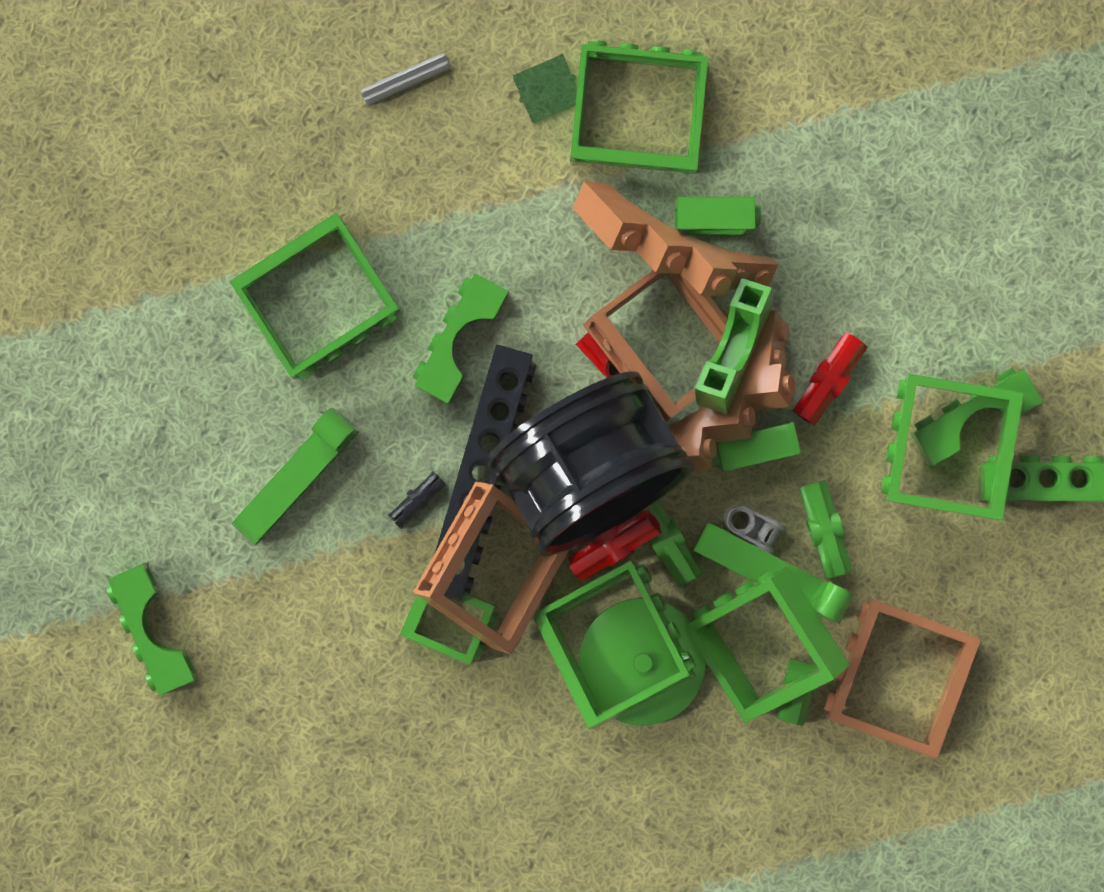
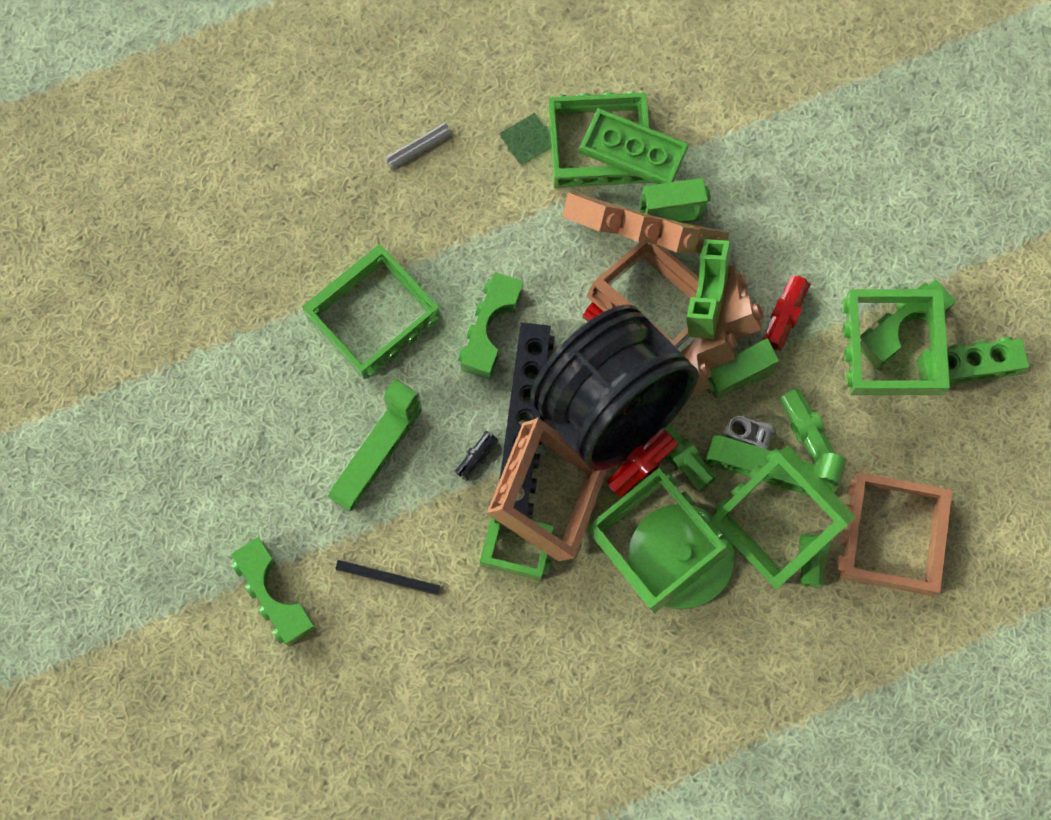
camera: 10 degrees left, 15 degrees down
(289, 630) = (387, 577): none -> black bar
(677, 134) = (633, 148): none -> bright green tile

